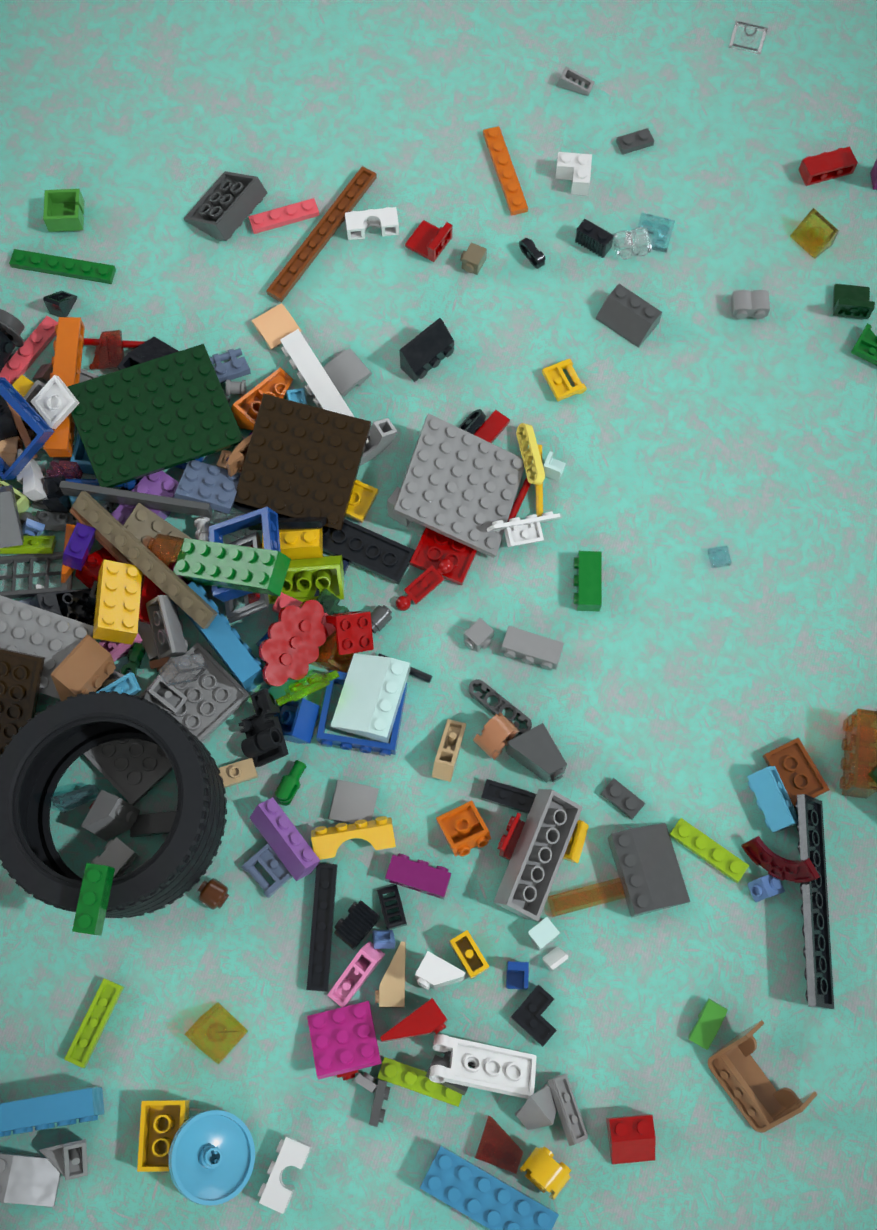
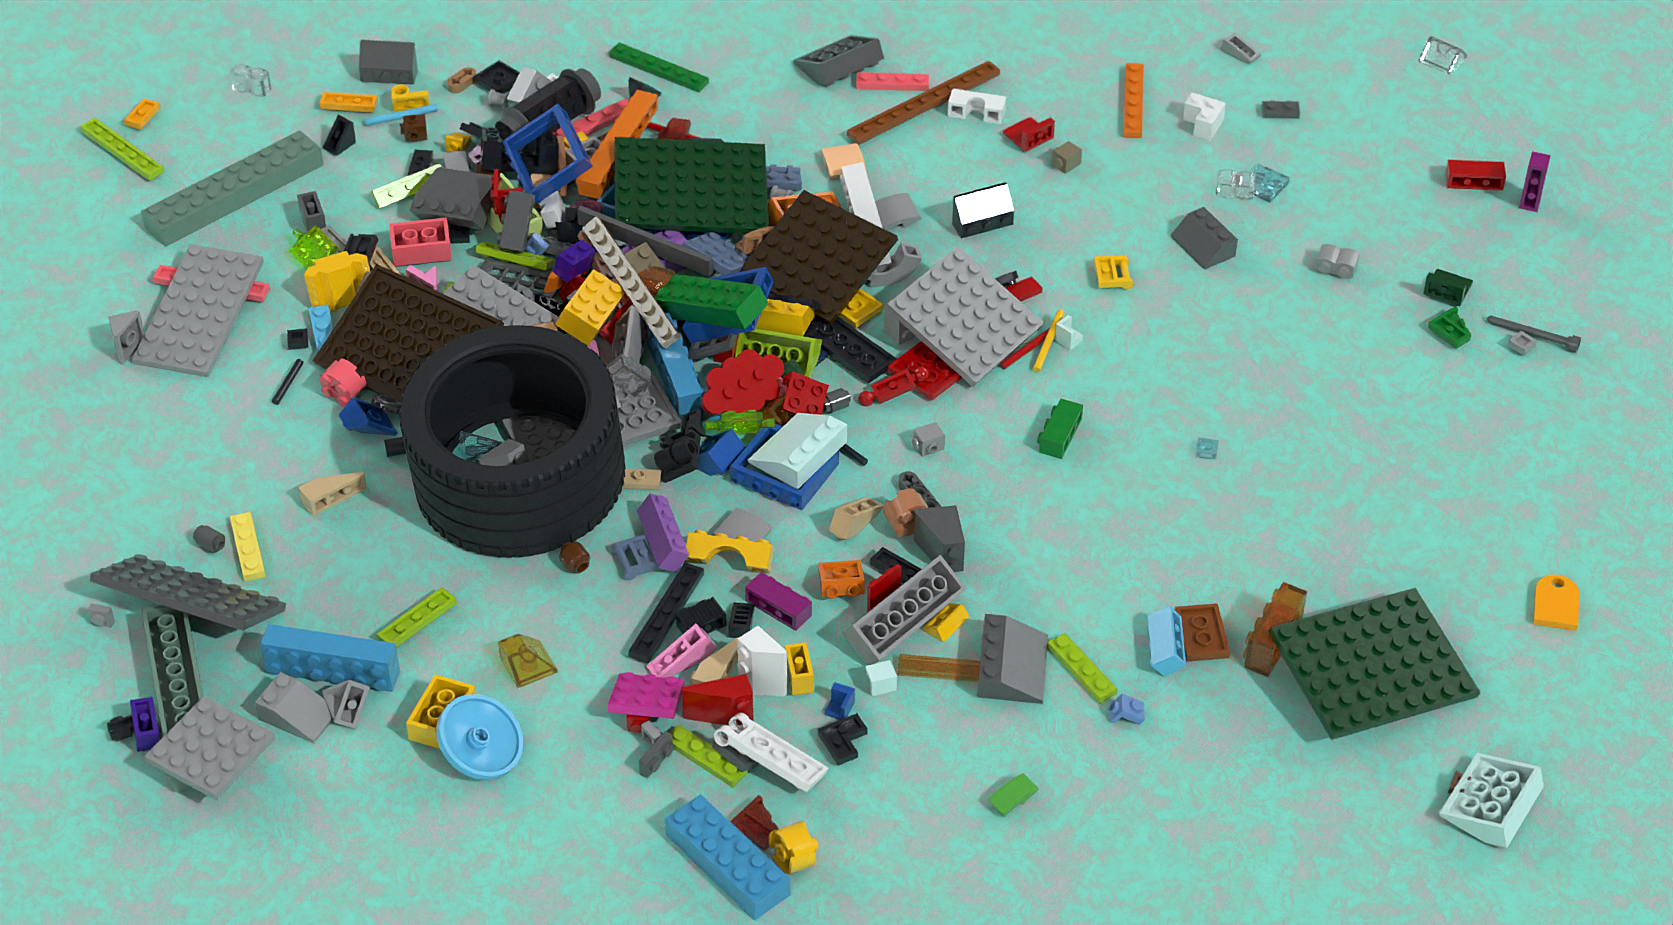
camera: 20 degrees right, 25 degrees down
(54, 402) = (603, 143): white plate -> none
(63, 210) = (680, 23): bright green piece -> none
(93, 899) = (471, 464): green brick -> none
(275, 1192) = (552, 766): white arch -> none
(290, 784) = (688, 498): green arm -> none
(383, 939) = (720, 635): medium blue tile -> none
(523, 531) = (1013, 369): white bracket -> none
(532, 253) = (1128, 167): black plate -> none
(532, 648) = (978, 463): light grey brick -> none
(534, 470) = (1049, 315): light yellow beam -> none
(538, 1109) = (808, 799): light grey slope -> none
(555, 958) = (884, 704): white slope -> none
(567, 1109) = (839, 815): light grey tile -> none
(594, 238) = (1198, 170): black brick -> none
(622, 798) = (1013, 603): dark grey plate -> none
(631, 1138) = (892, 855): red slope -> none
(749, 1086) = (1028, 848): medium nougat windscreen -> none
(777, 866) = (1146, 690): dark red tile -> none
(815, 233) = (1434, 223): clear yellow slope -> none
(815, 905) = (1169, 730): black plate -> none

